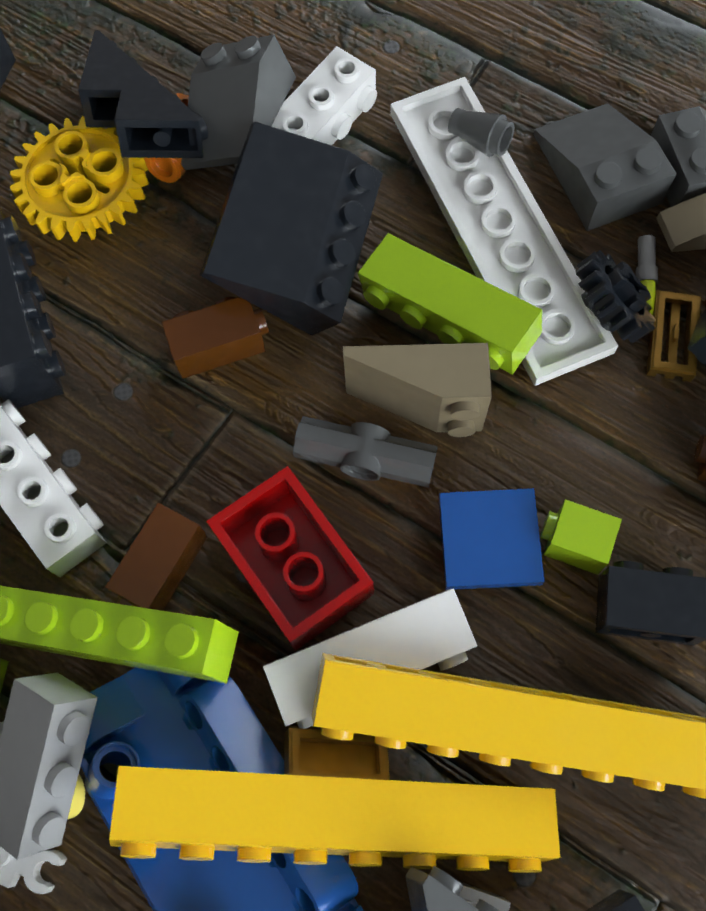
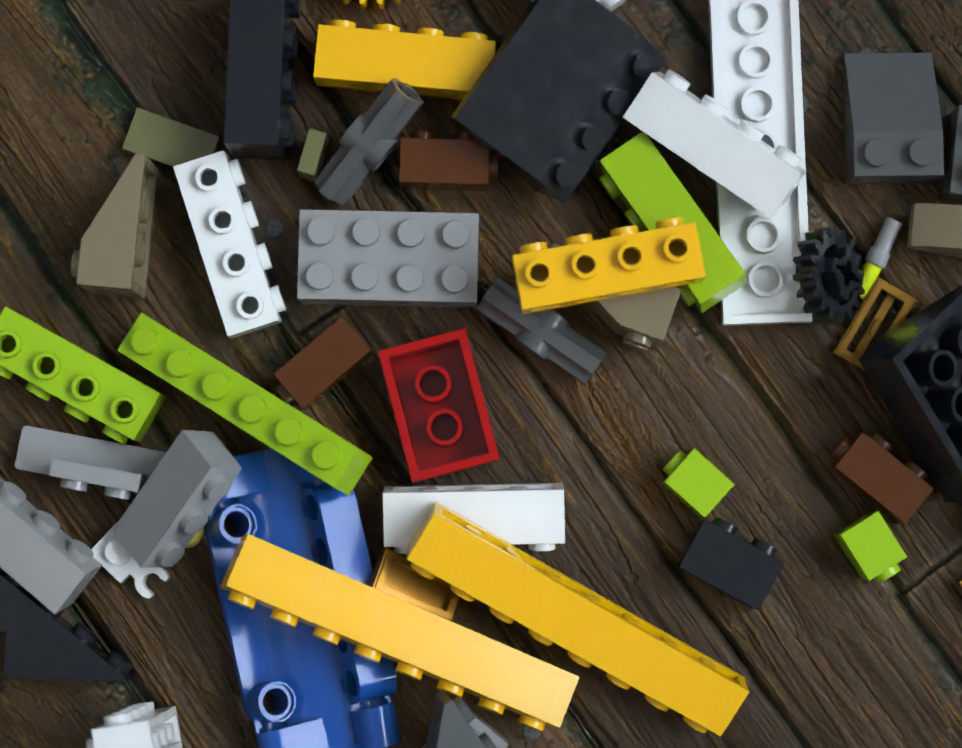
camera: 20 degrees right, 15 degrees up
(84, 373) = (313, 155): none -> olive tile
(131, 336) = (368, 141): none -> dark grey piece
(133, 263) = (425, 60): none -> yellow brick
(187, 438) = (388, 258): none -> light grey brick
(406, 341) = (608, 267): none -> yellow brick
(459, 217) = (715, 143): none -> white brick
(484, 131) = (782, 50): dark grey cone -> none
(490, 539) = (618, 453): blue tile -> none

